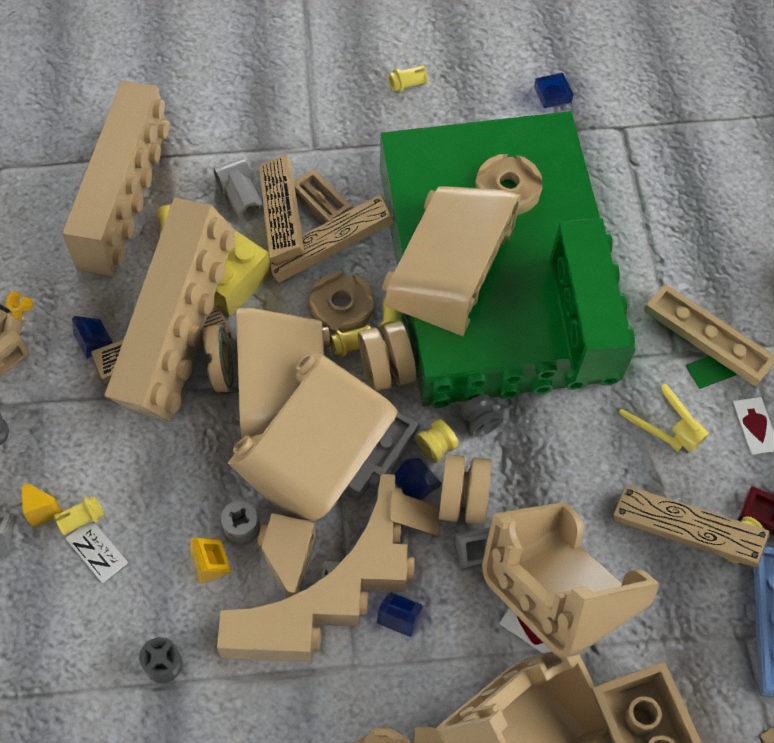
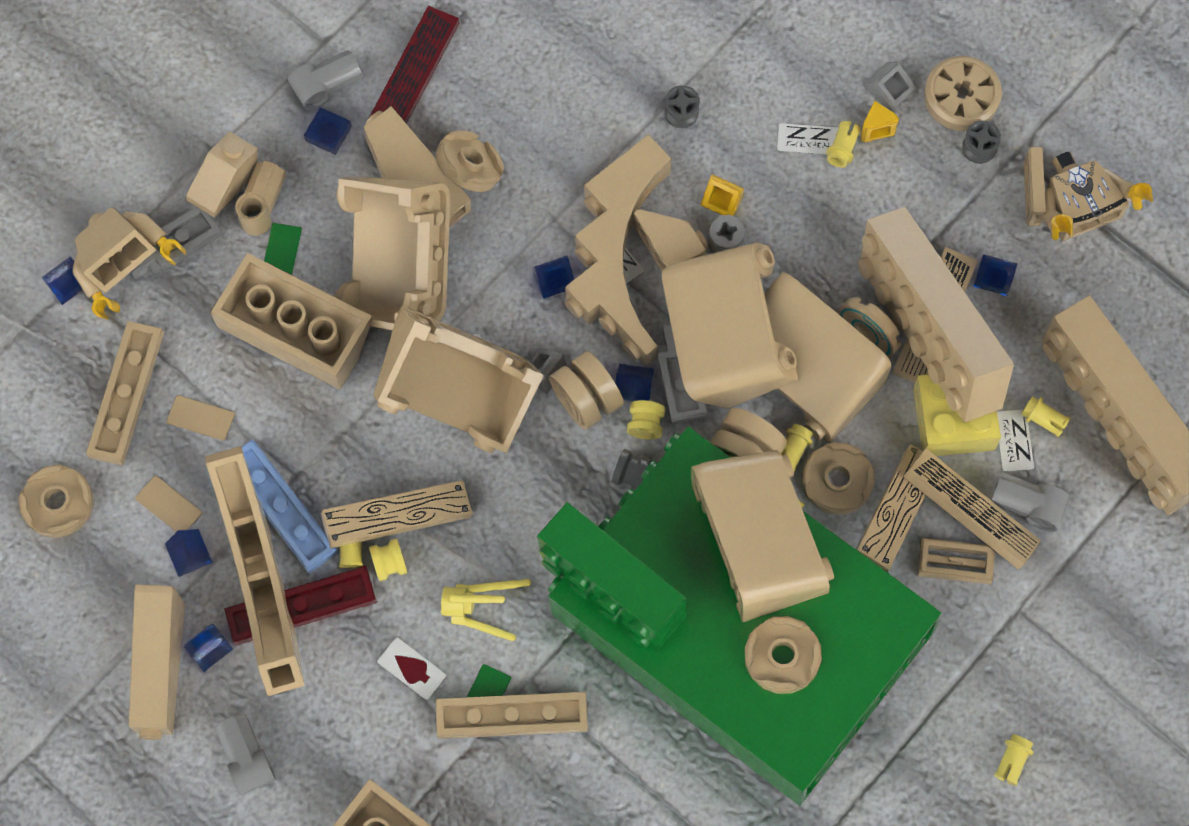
camera: 140 degrees right, 10 degrees up
(414, 513) = (612, 343): tan sticker -> none
(722, 500) = (388, 559): none -> light yellow wheel

